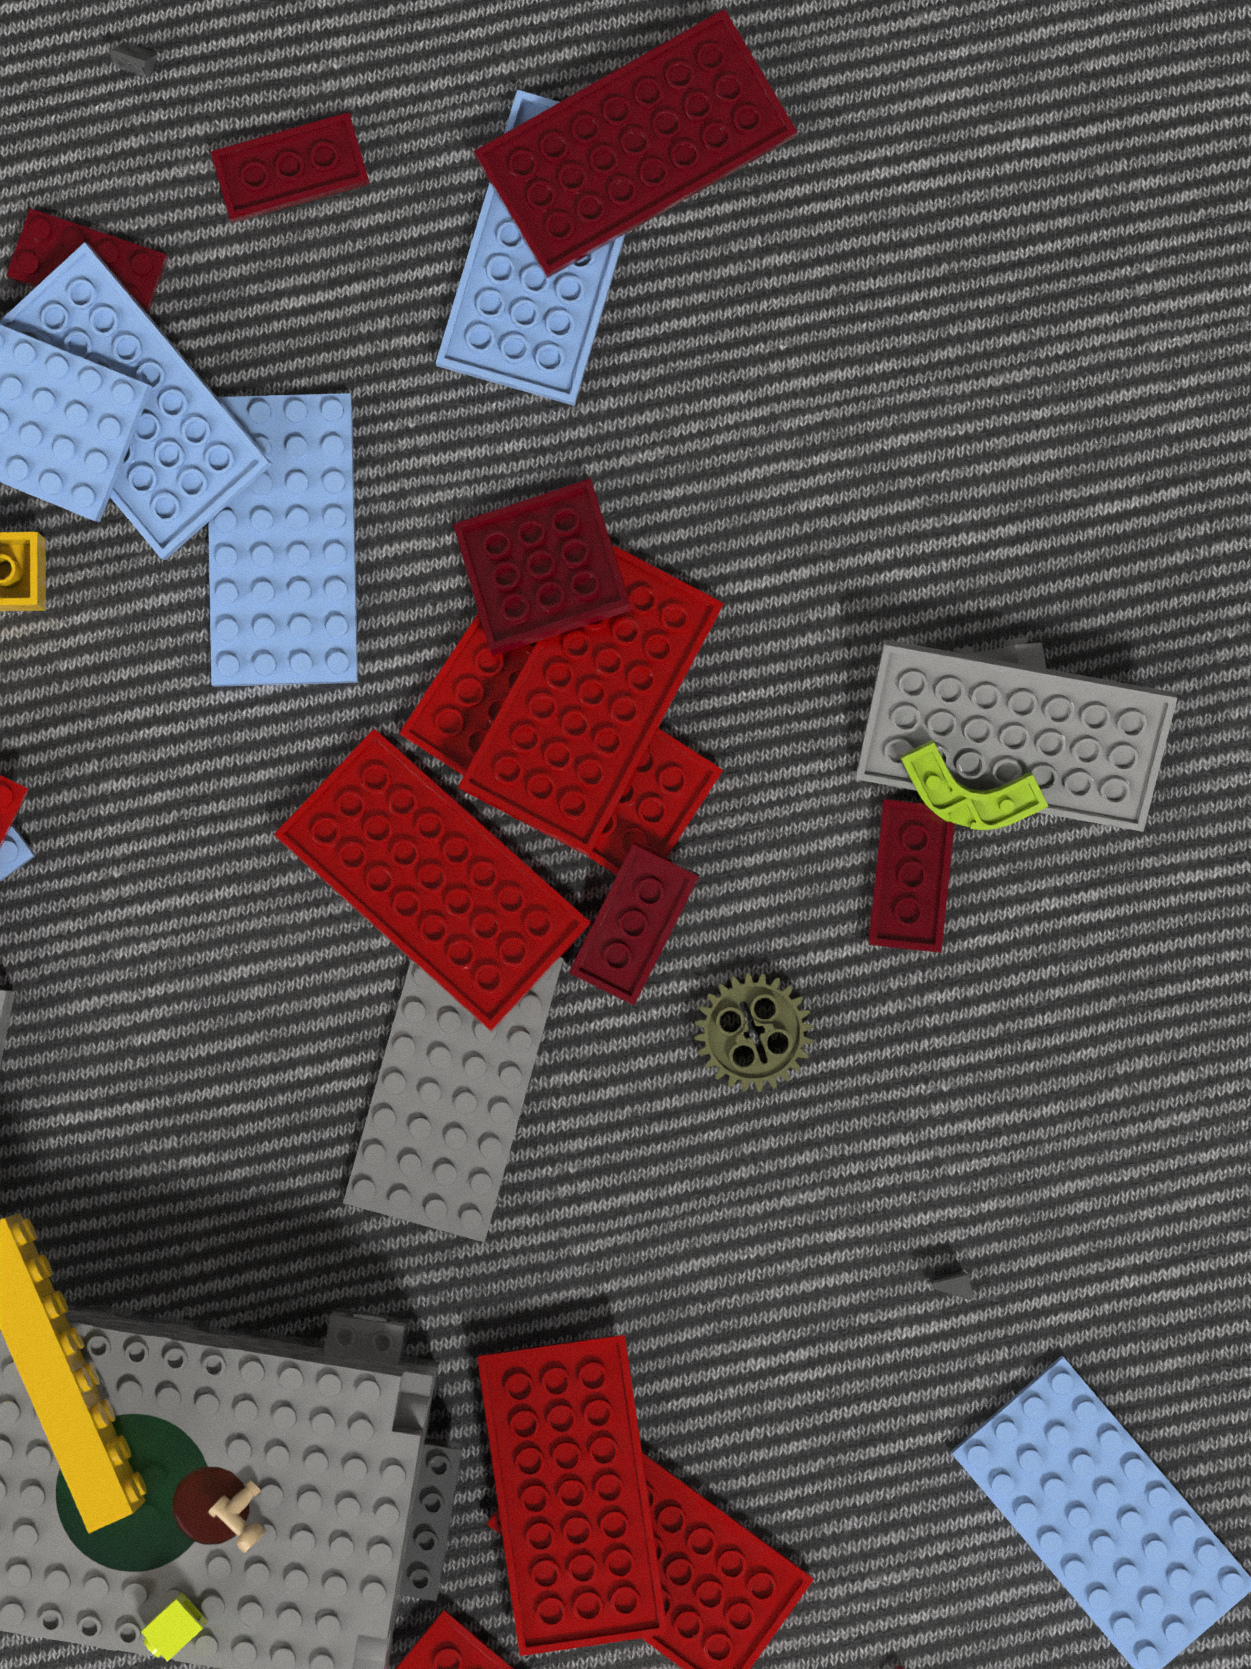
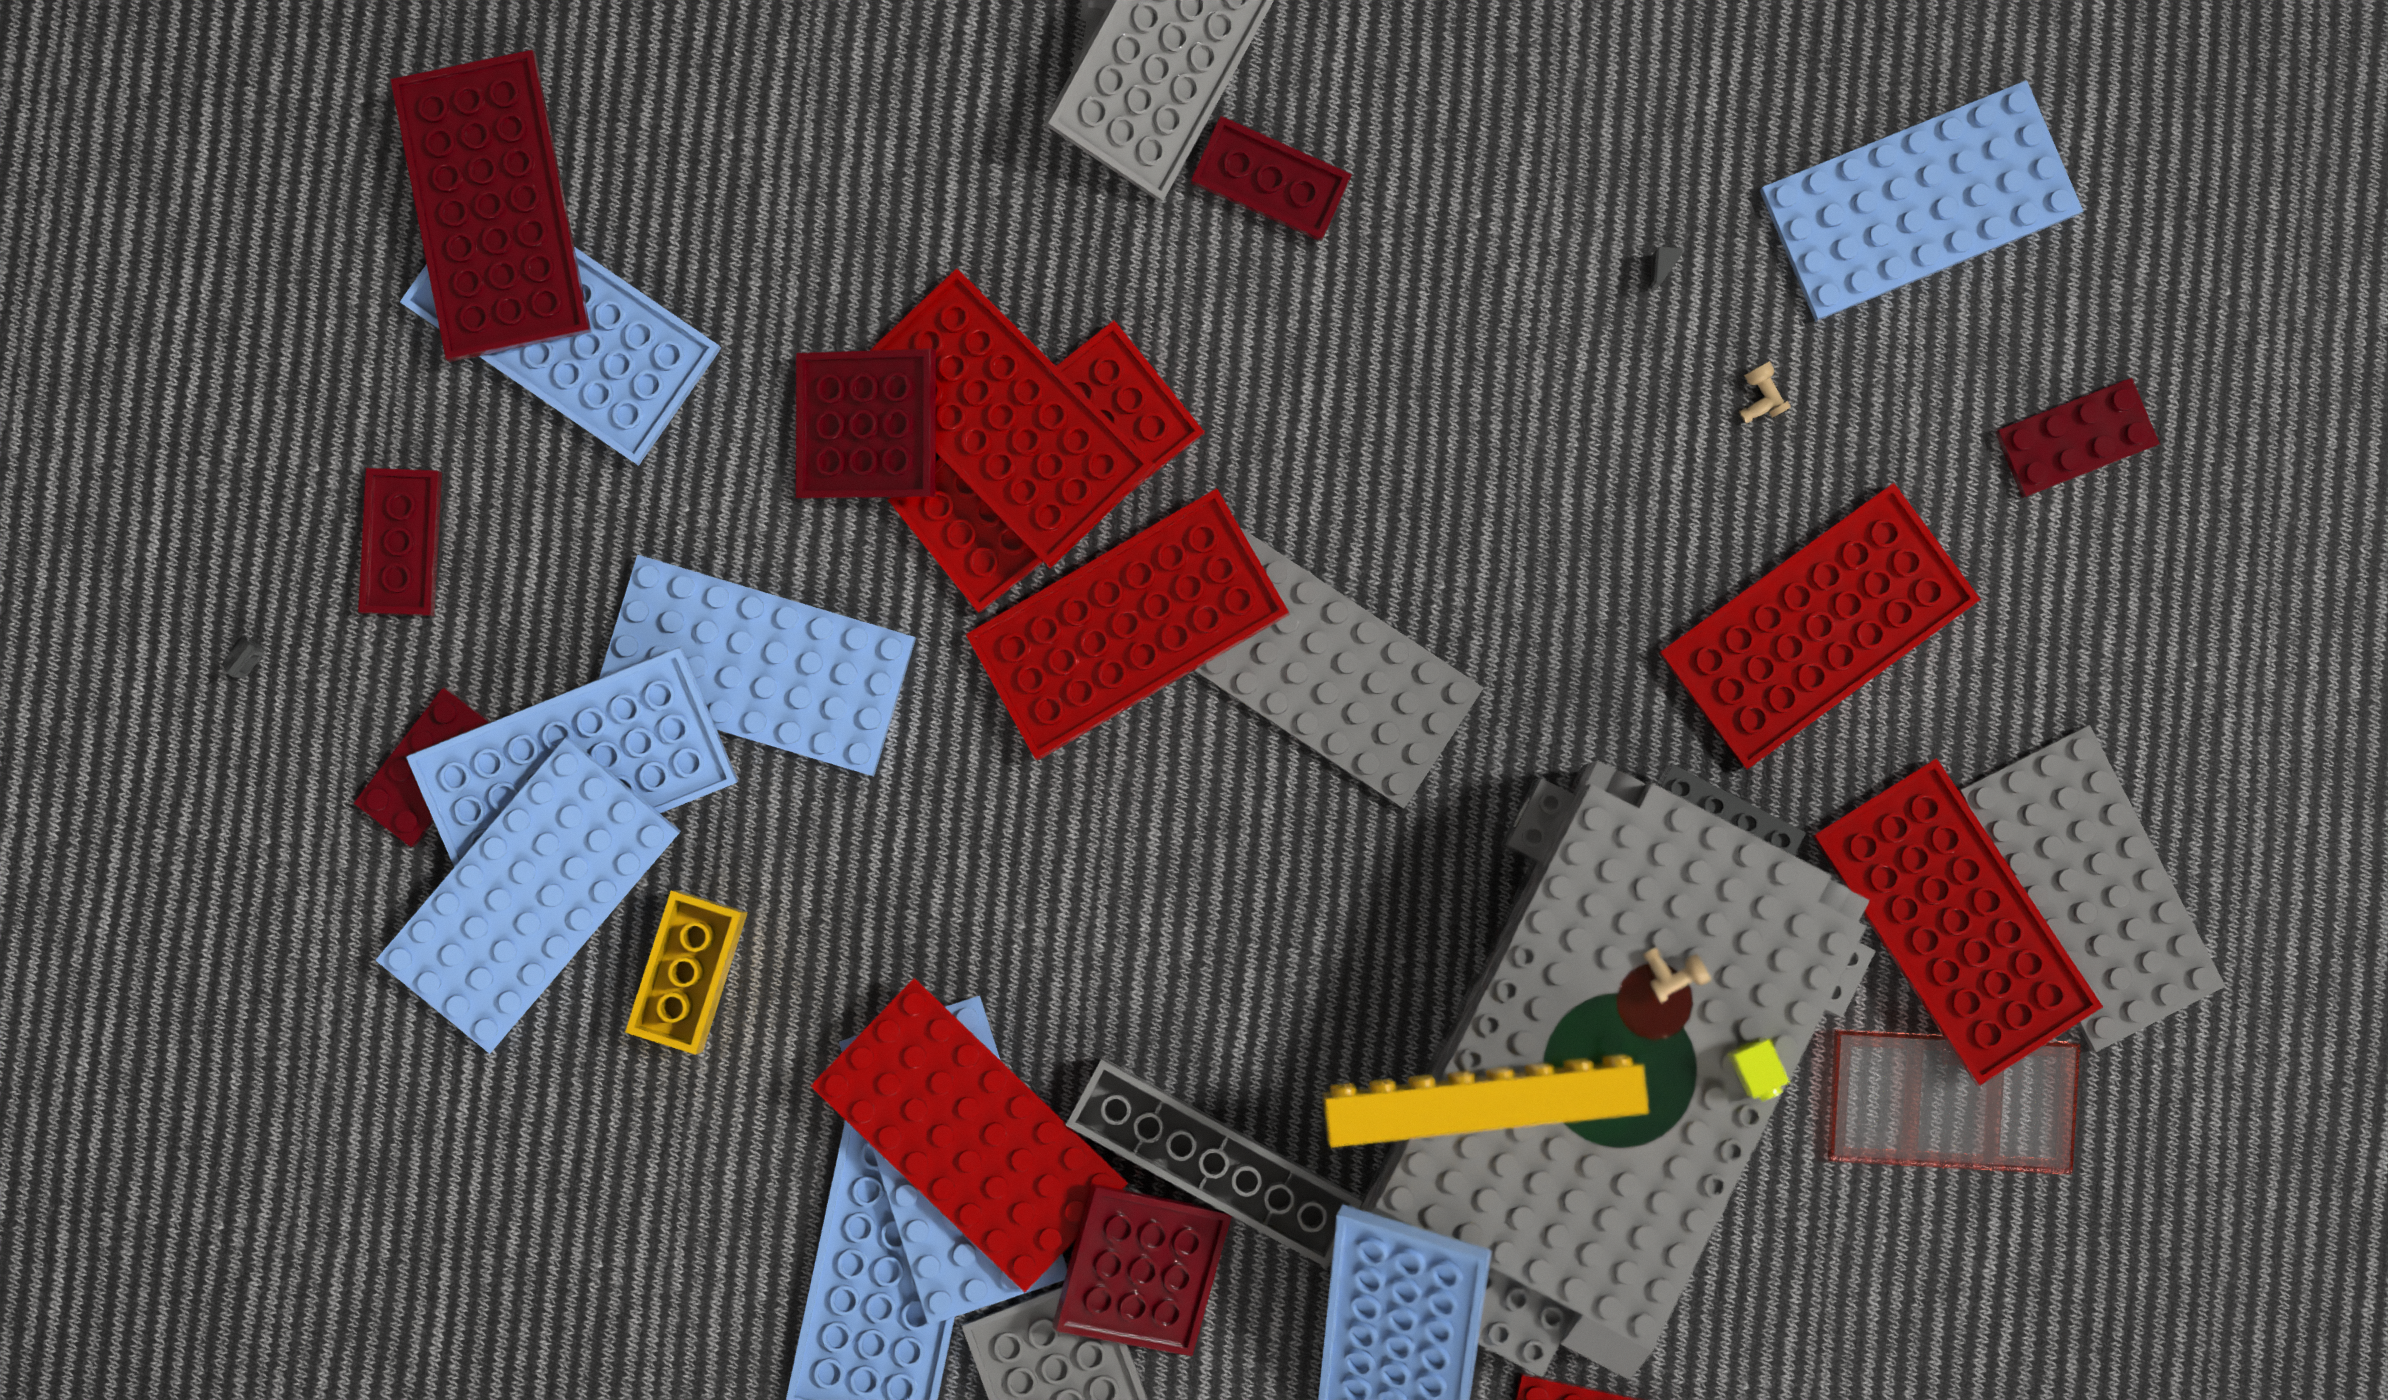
camera: 70 degrees left, 0 degrees up
(572, 1494) = (1745, 678): red plate -> none
(634, 923) = (1231, 448): dark red plate -> none
(785, 1020) = (1366, 340): olive gear -> none
(856, 1434) = (1772, 399): none -> tan piece
(968, 806) = (1225, 101): lime plate -> none

